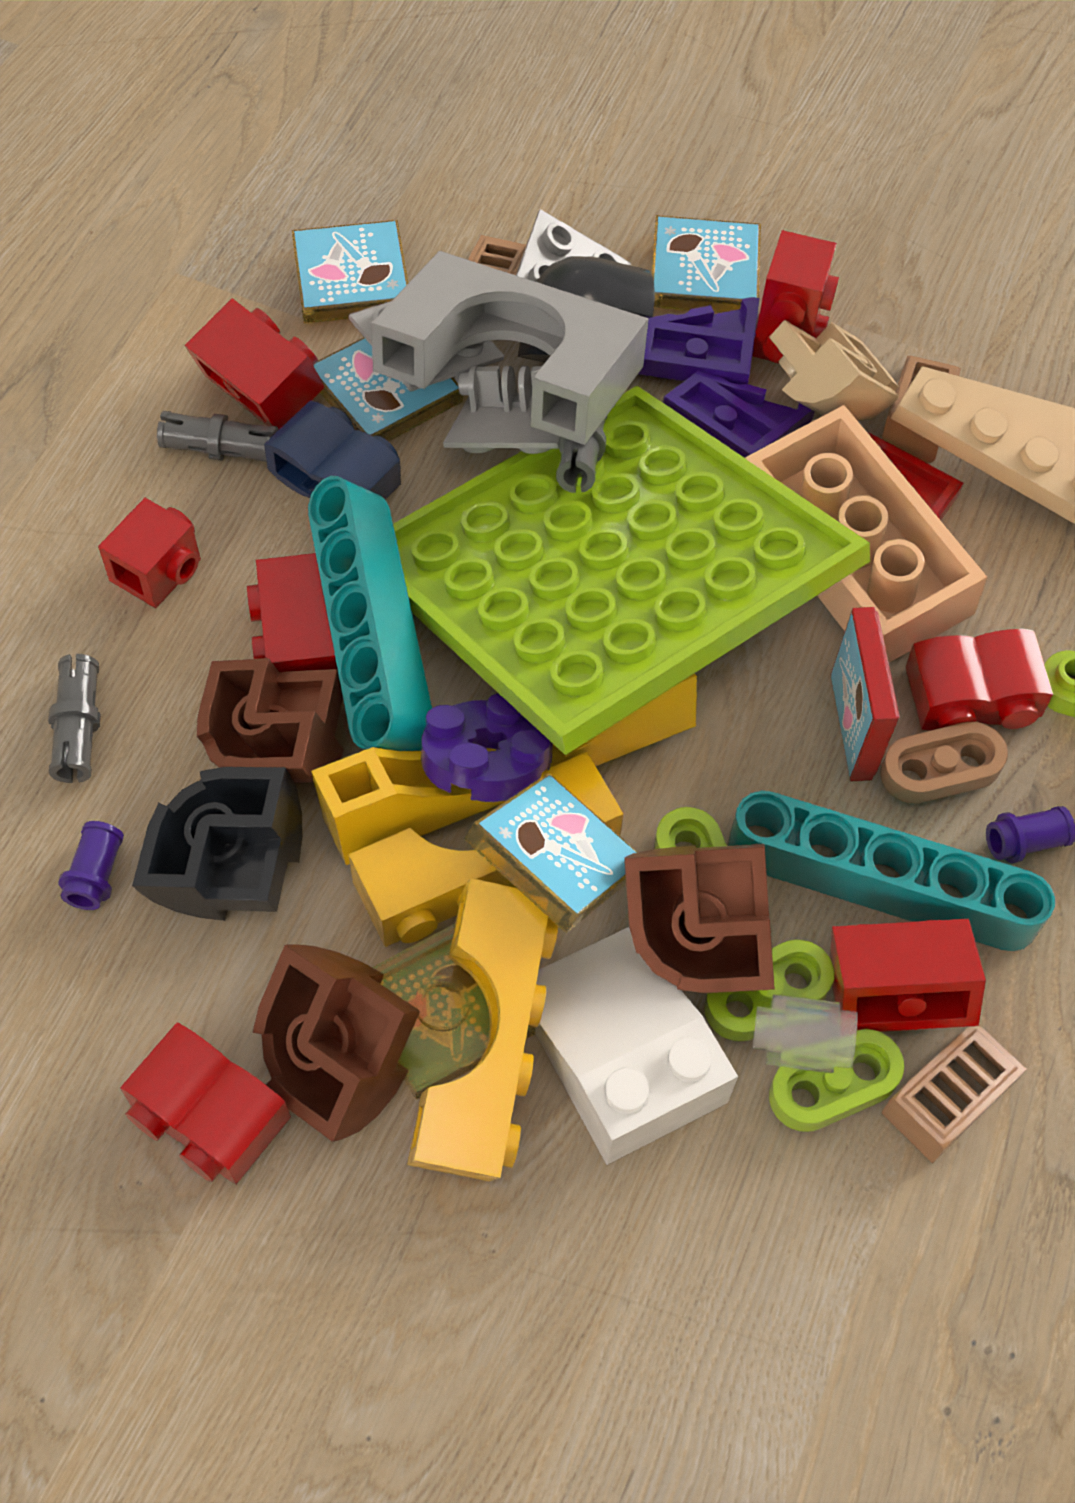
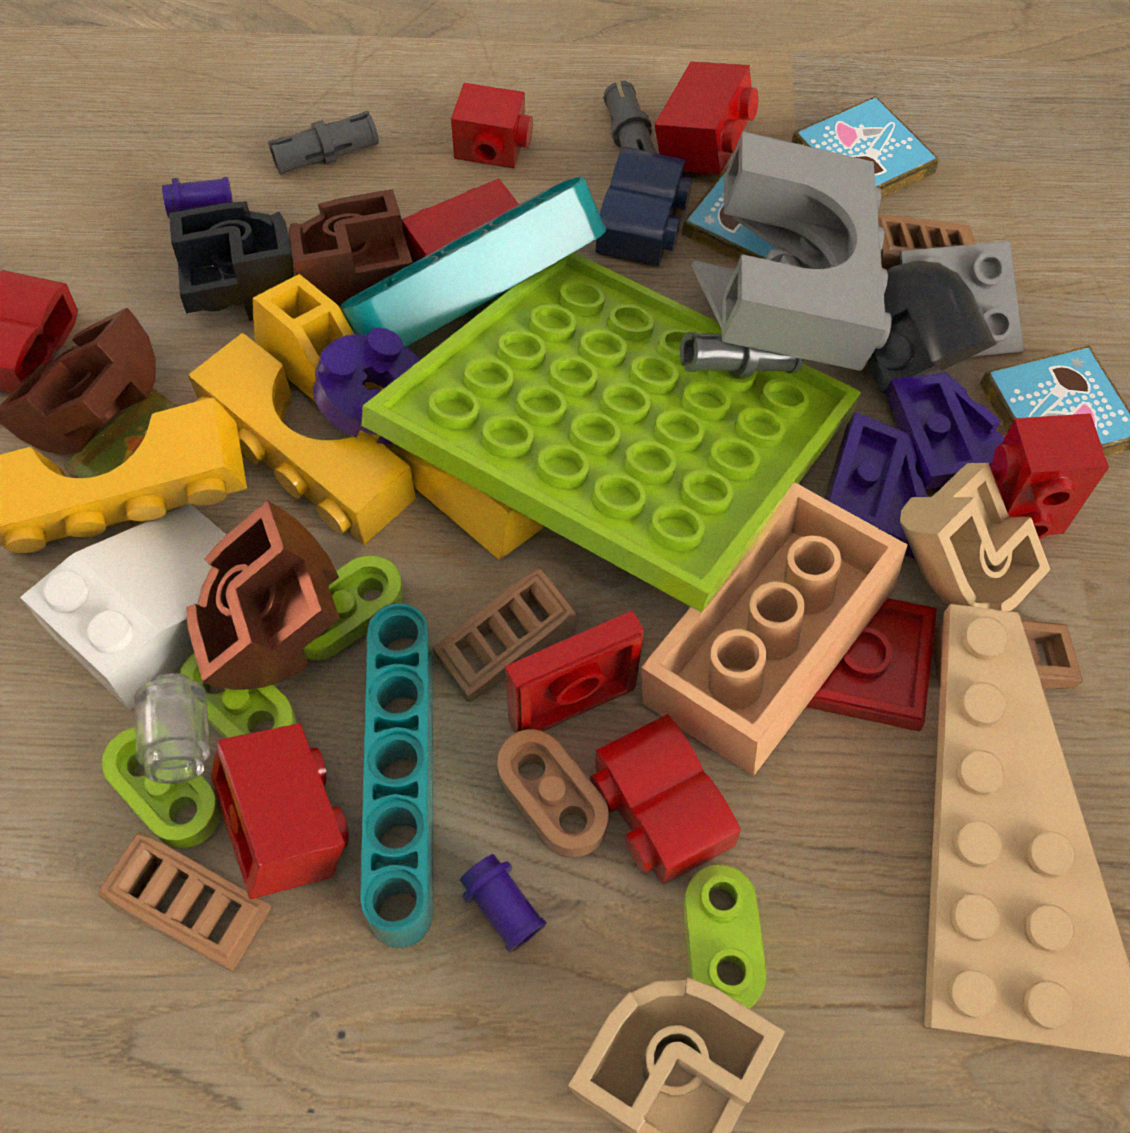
camera: 70 degrees right, 0 degrees up
(553, 850) = (270, 450): tile -> none
(768, 708) = (513, 603): none -> medium nougat slope

